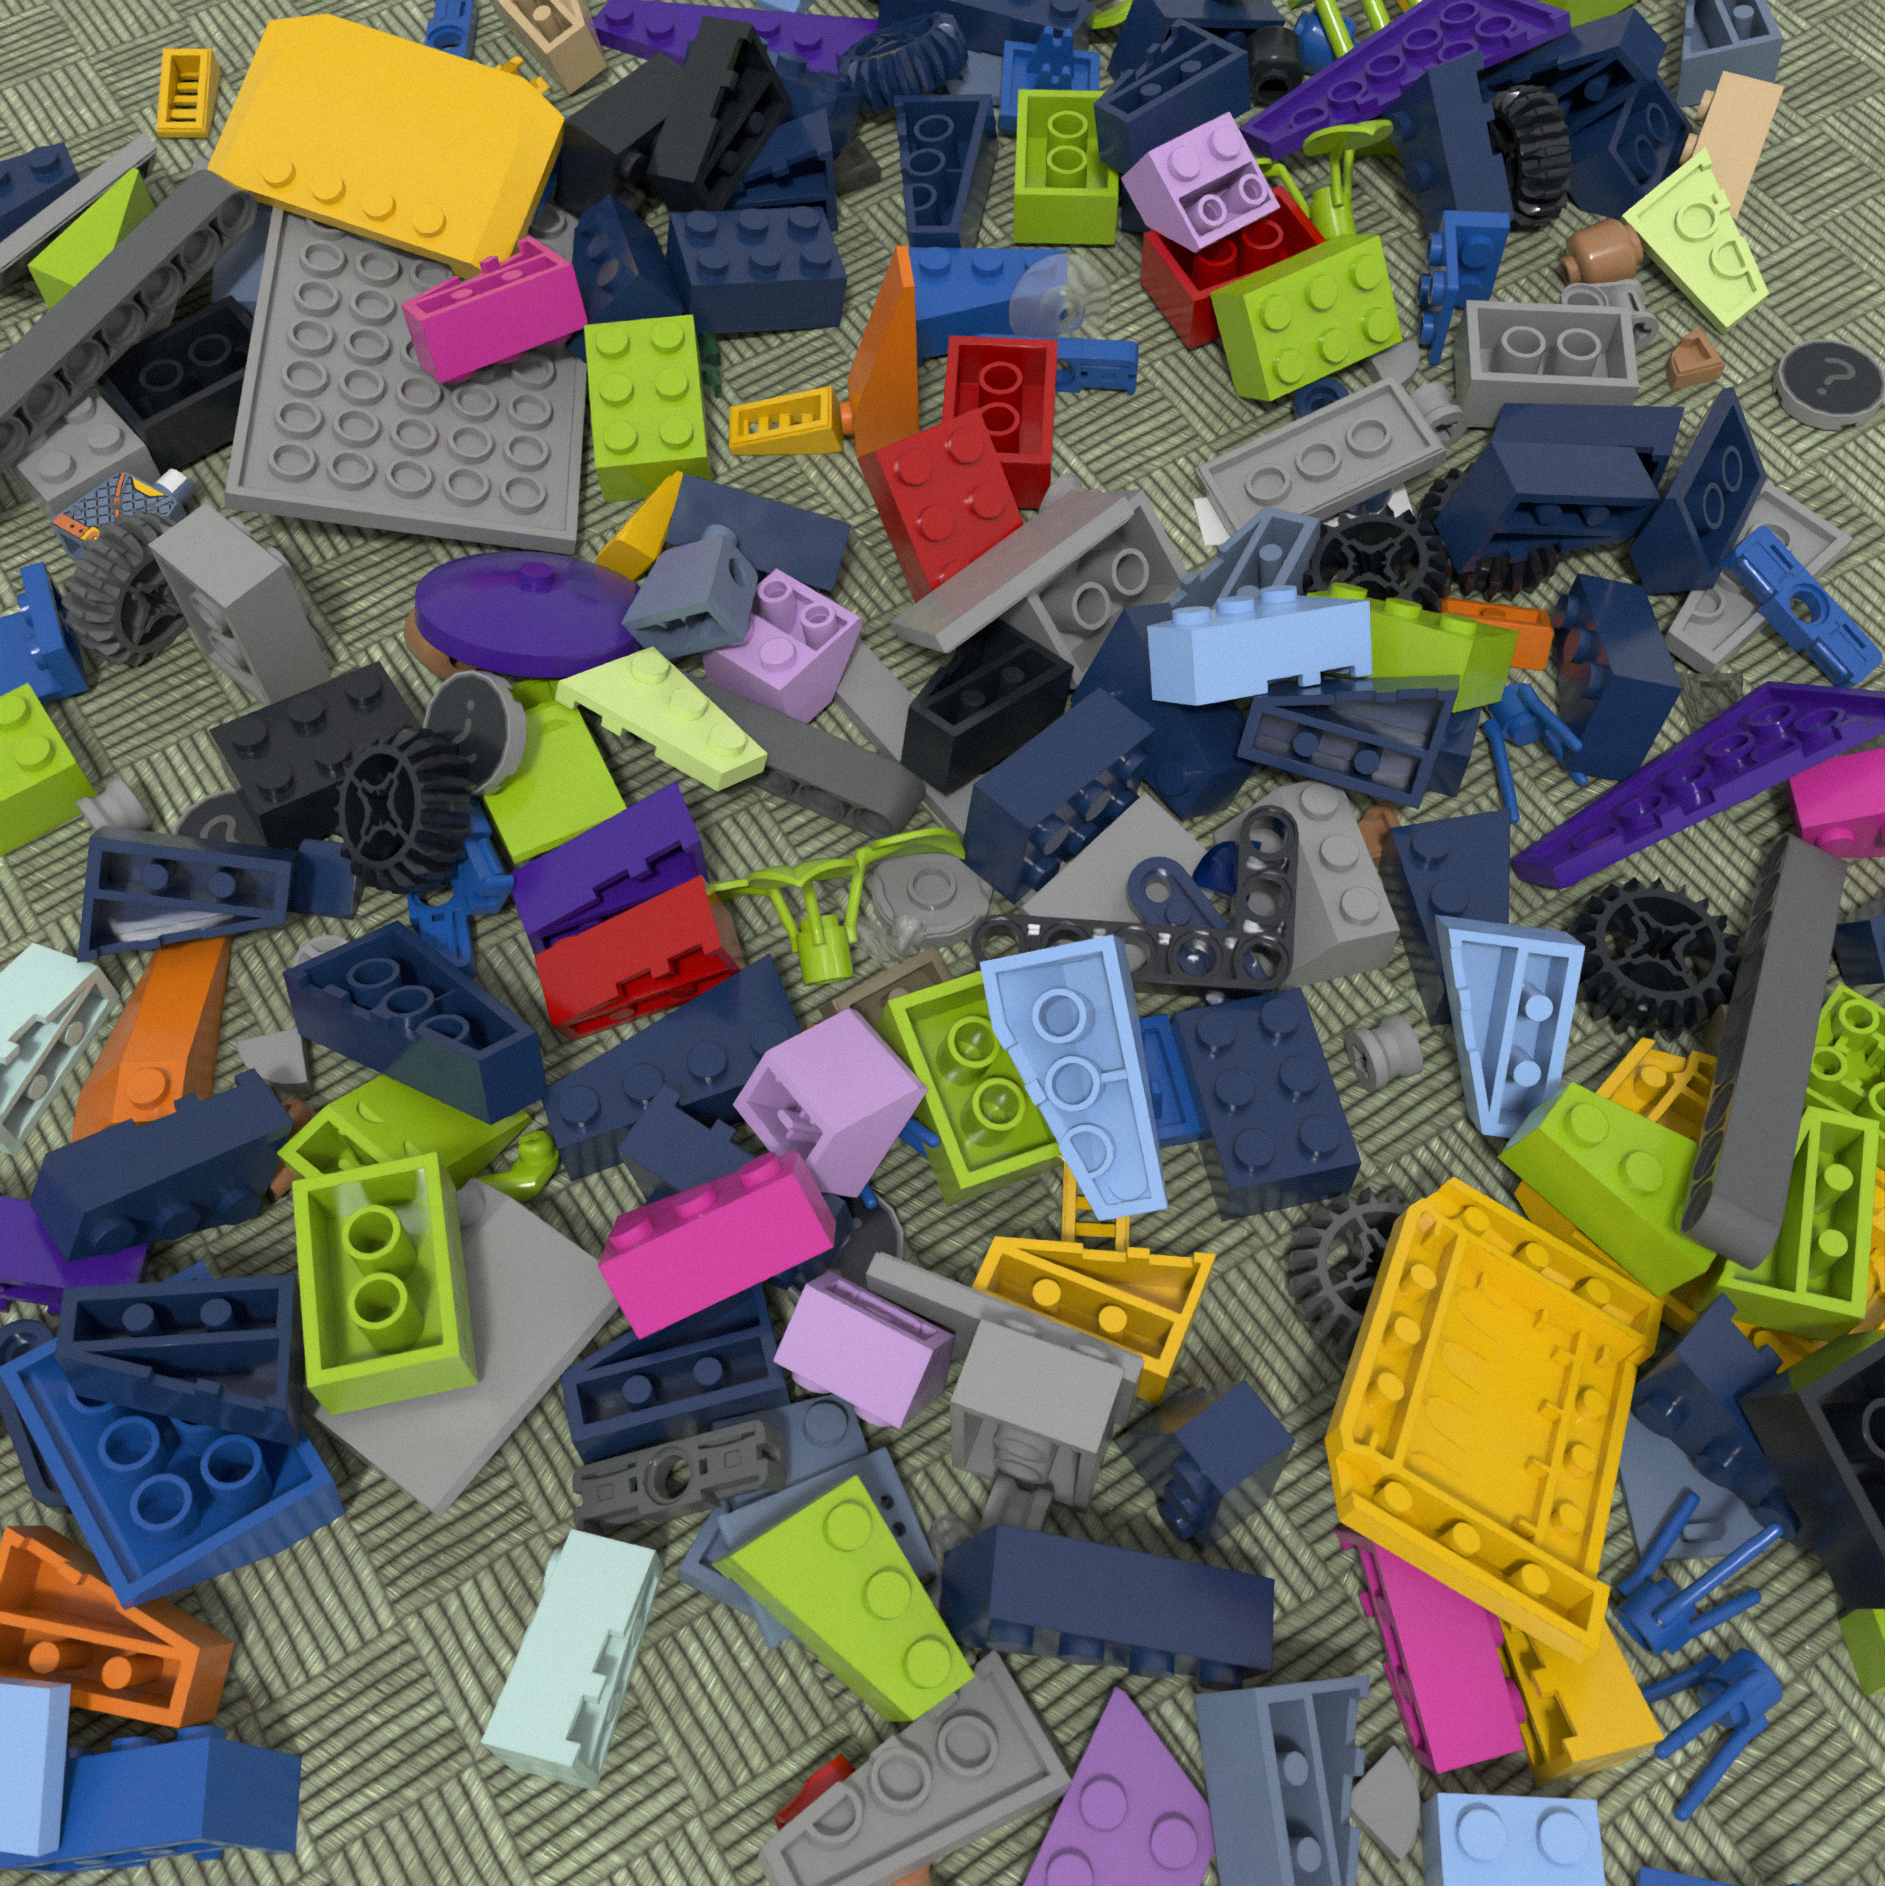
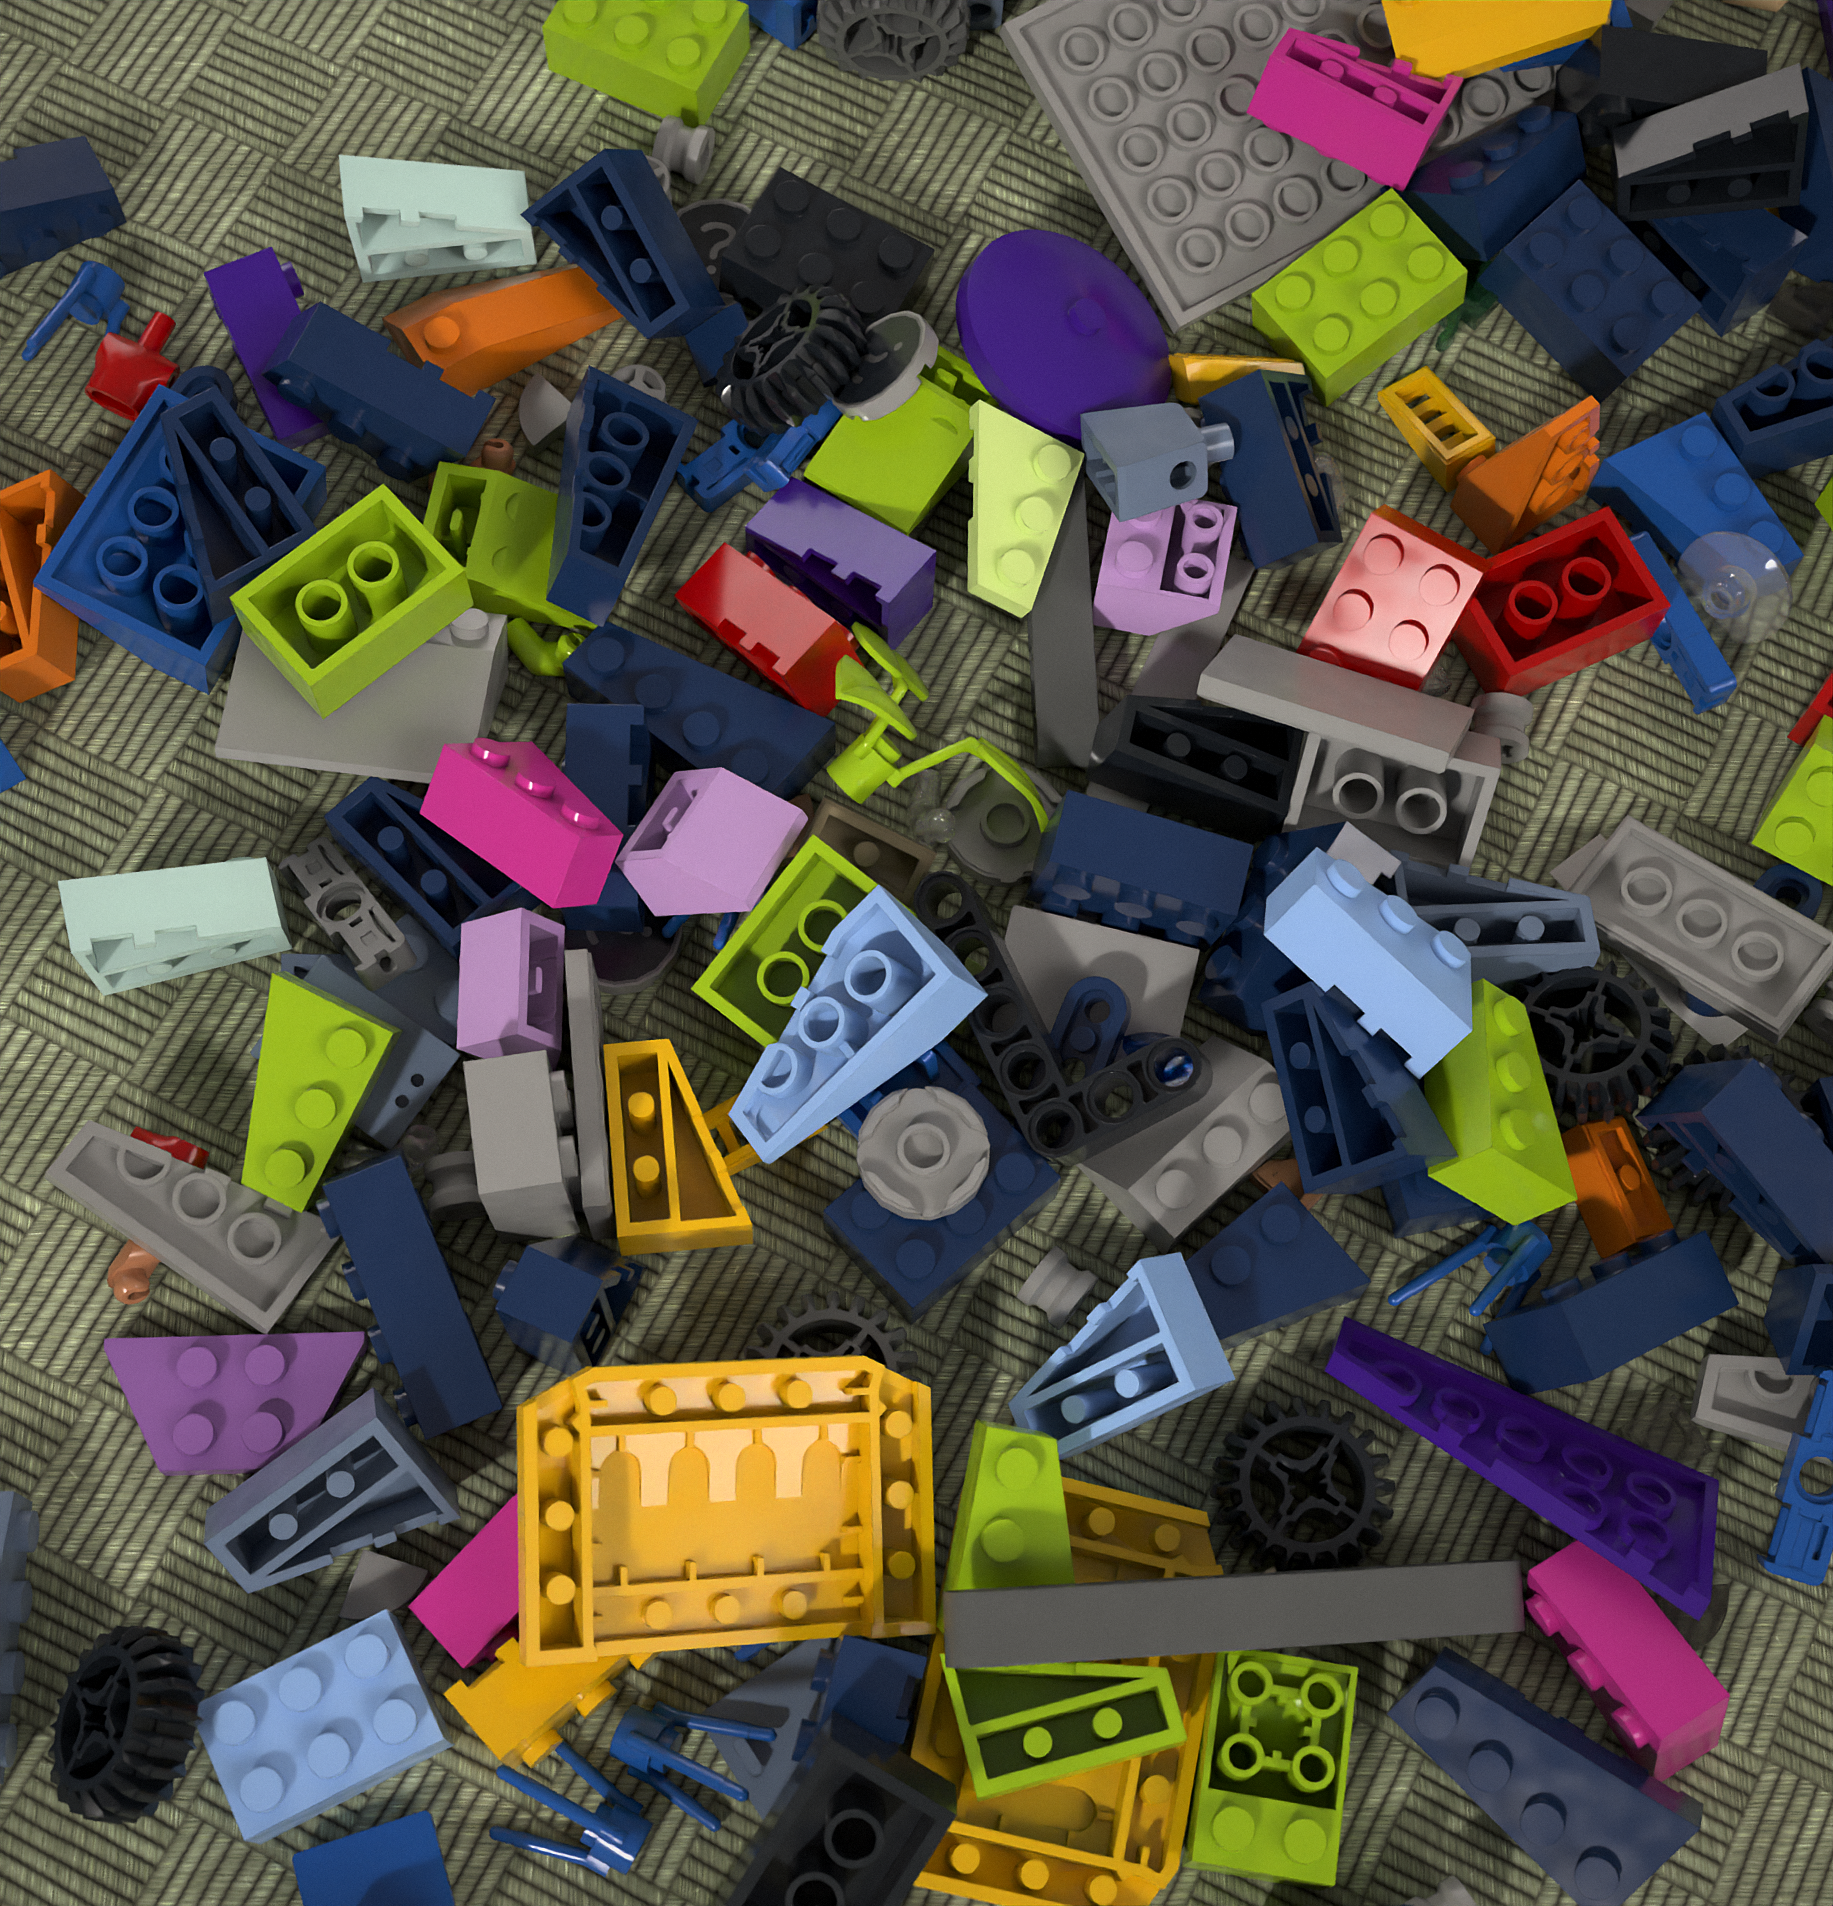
camera: 55 degrees right, 10 degrees up
(241, 605) = (911, 113): light grey brick -> none
(1228, 1076) = (923, 1152): none -> light grey tile

